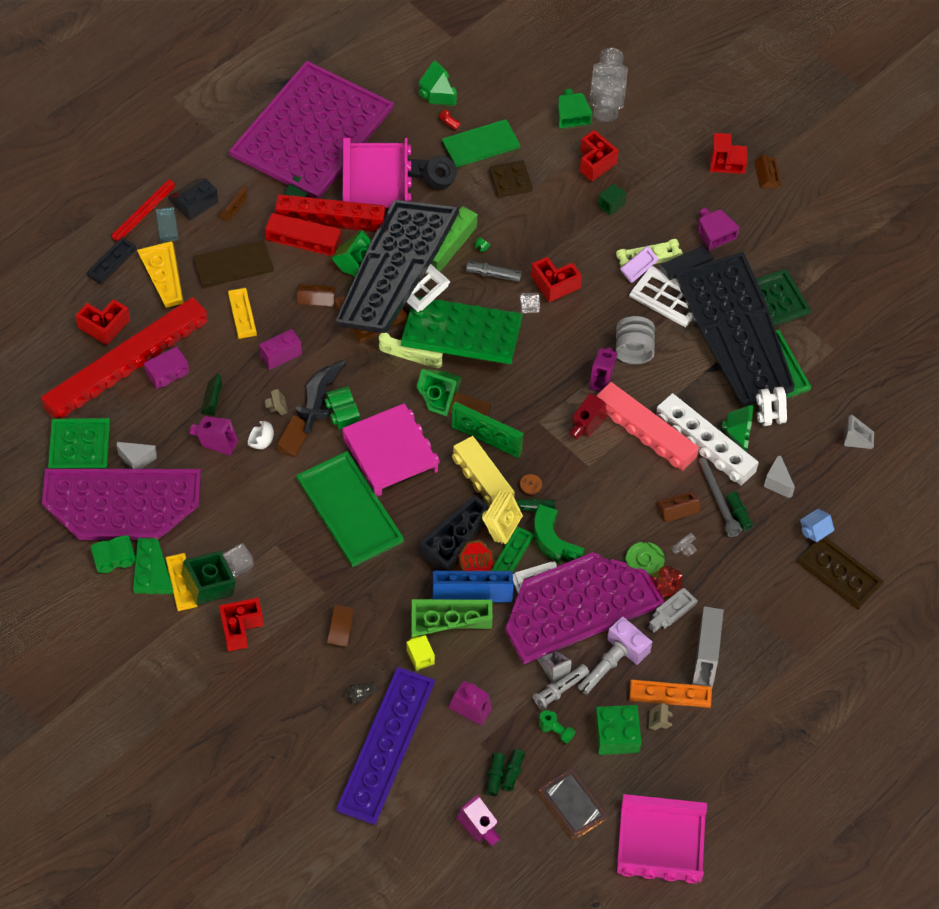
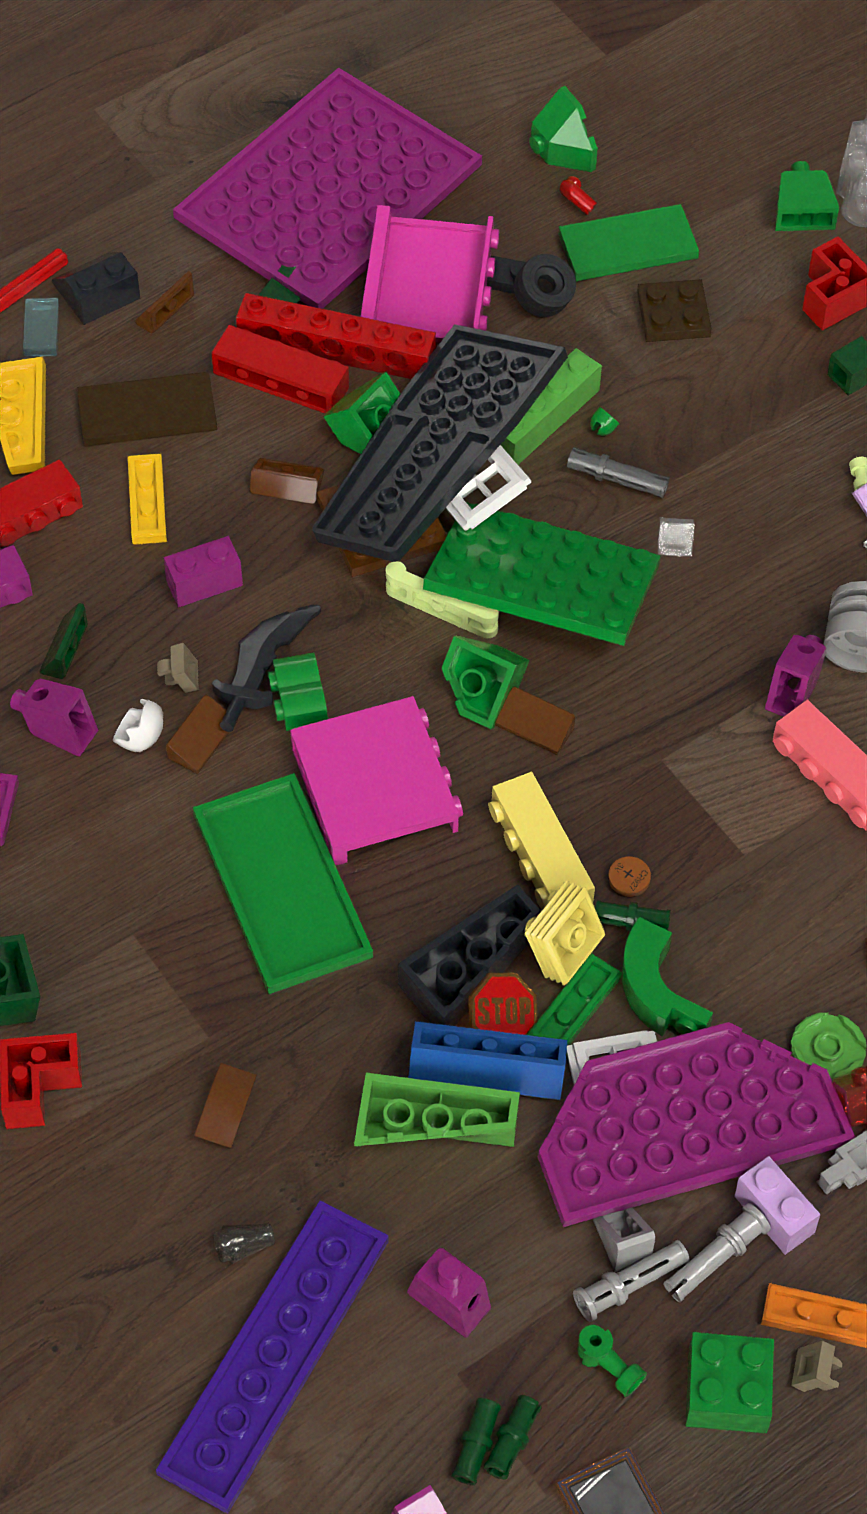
camera: 10 degrees right, 0 degrees up
(239, 559) = (55, 955): clear brick -> none
(420, 652) = (369, 1177): neon yellow brick -> none
(487, 430) = (560, 763): green tile -> none
(555, 282) = (726, 503): red brick -> none
(588, 417) = (755, 761): dark red torso -> none

